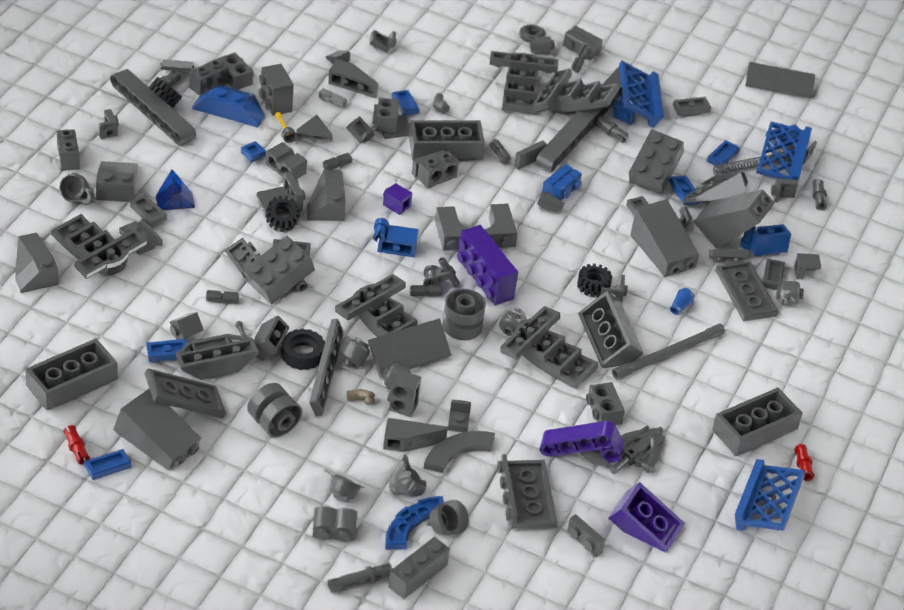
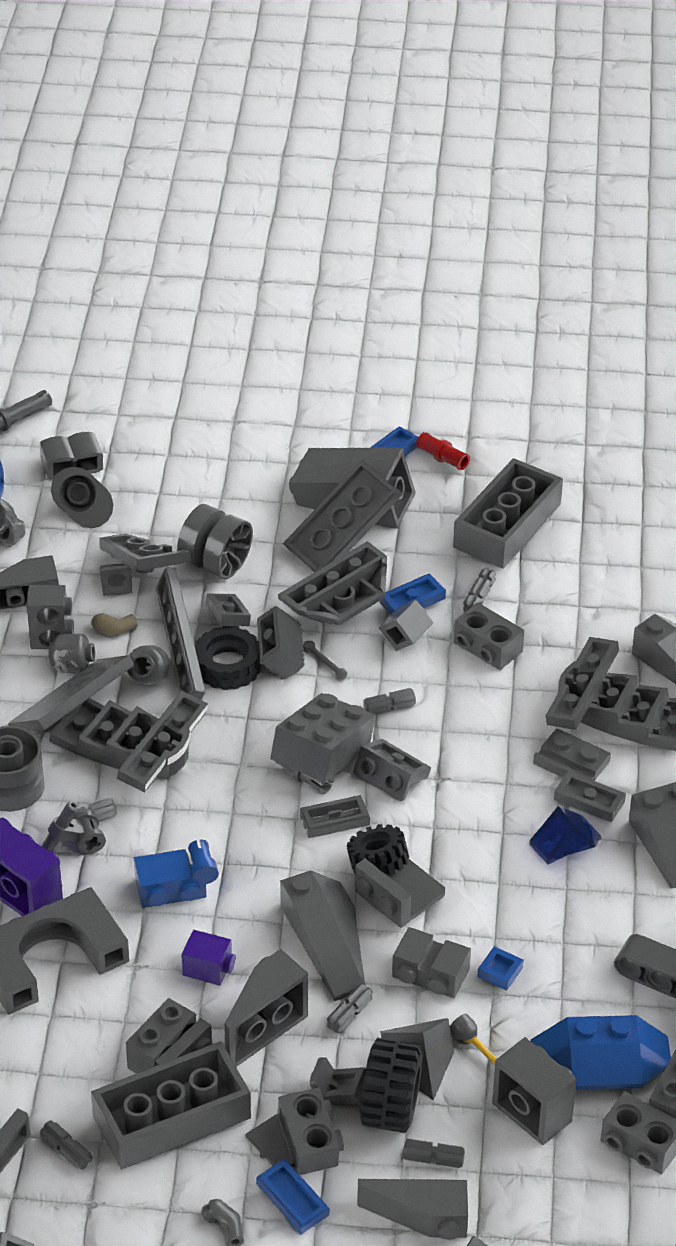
camera: 165 degrees right, 0 degrees up
(123, 343) = (480, 588): none -> dark grey axle
(140, 308) = (488, 636): none -> dark grey brick
(289, 370) = (228, 610): none -> dark grey plate
(325, 422) = (140, 554): none -> dark grey wing
(342, 105) = (391, 1085): none -> black tyre
(347, 422) = (116, 579): none -> dark grey bracket
(383, 157) = (267, 1006): none -> dark grey slope

